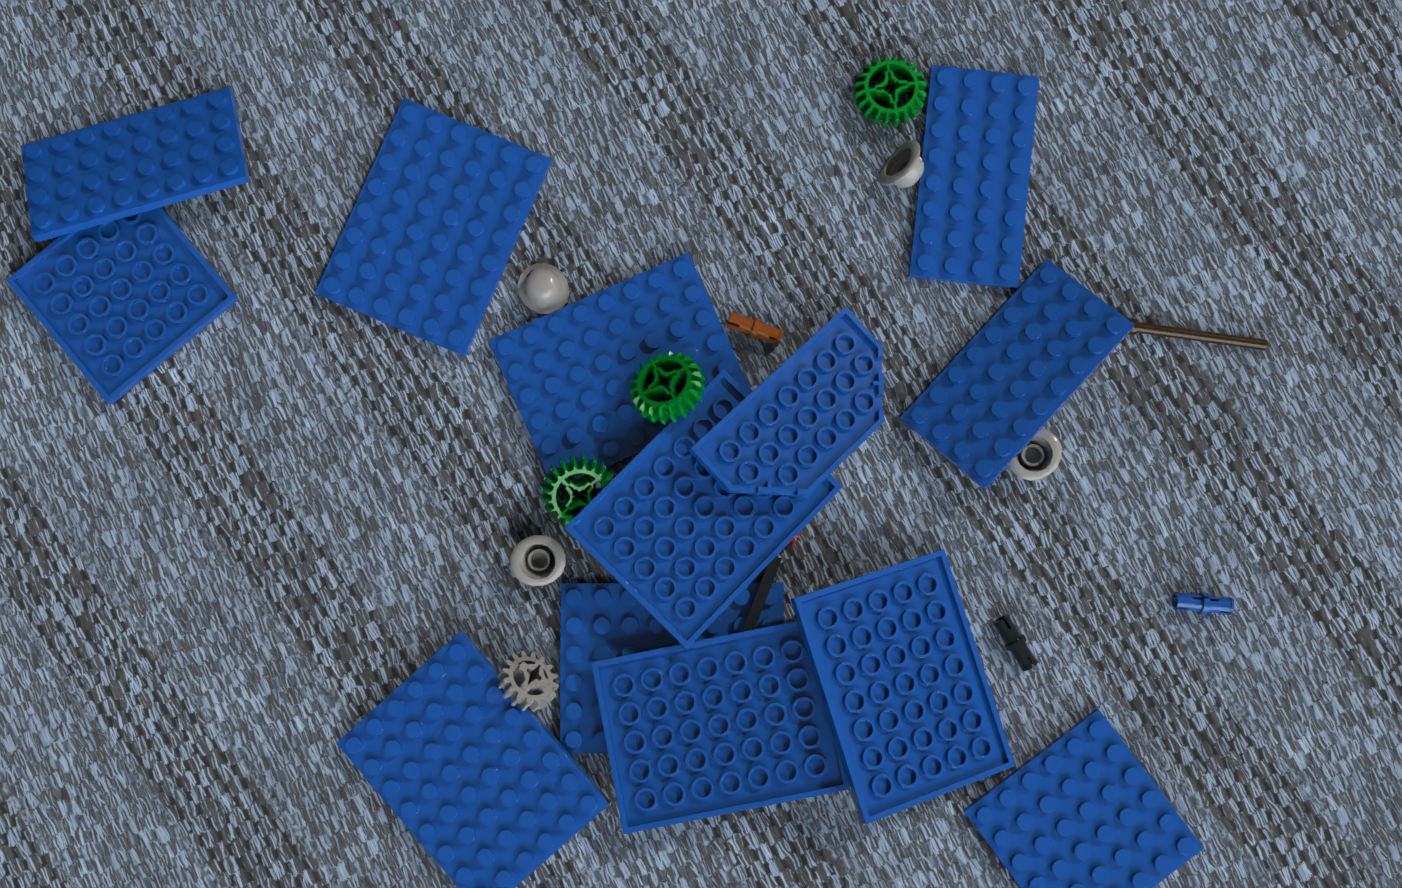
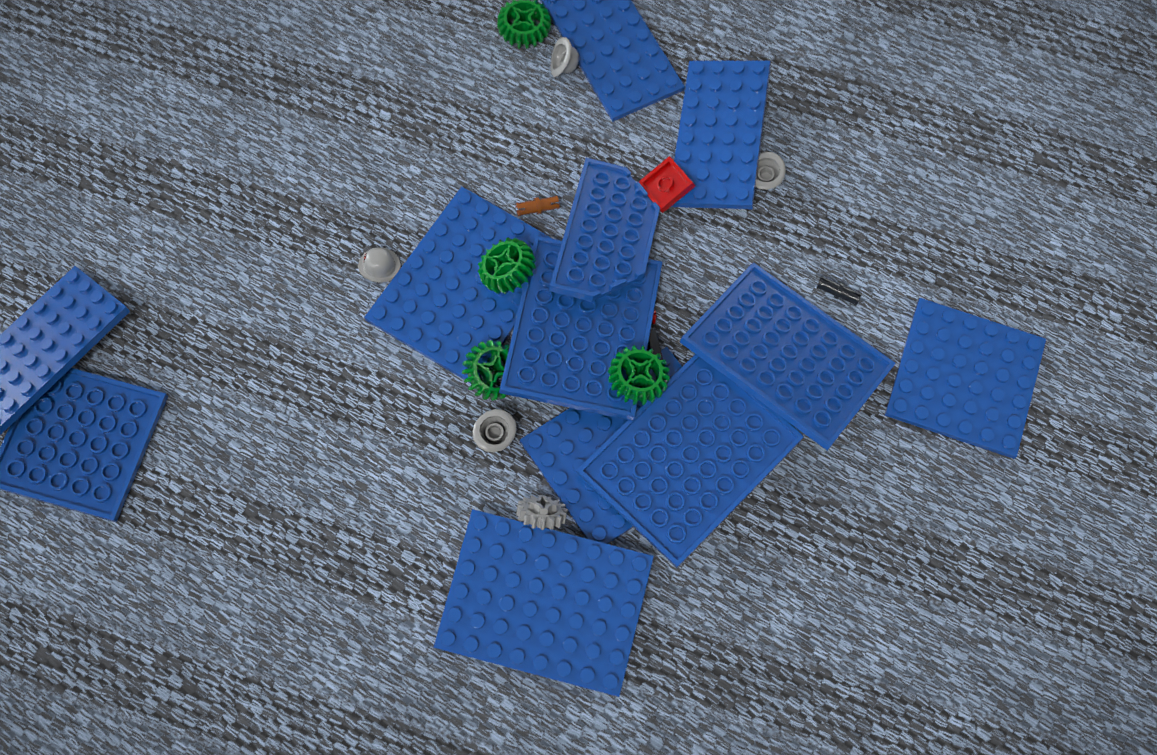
camera: 40 degrees left, 15 degrees down
(434, 227) = (278, 272): blue plate -> none
(723, 621) = (637, 363): none -> green gear
(911, 396) = (666, 184): none -> red tile
(1197, 335) = (812, 51): dark brown bar -> none
(1203, 603) = (932, 197): blue pin -> none

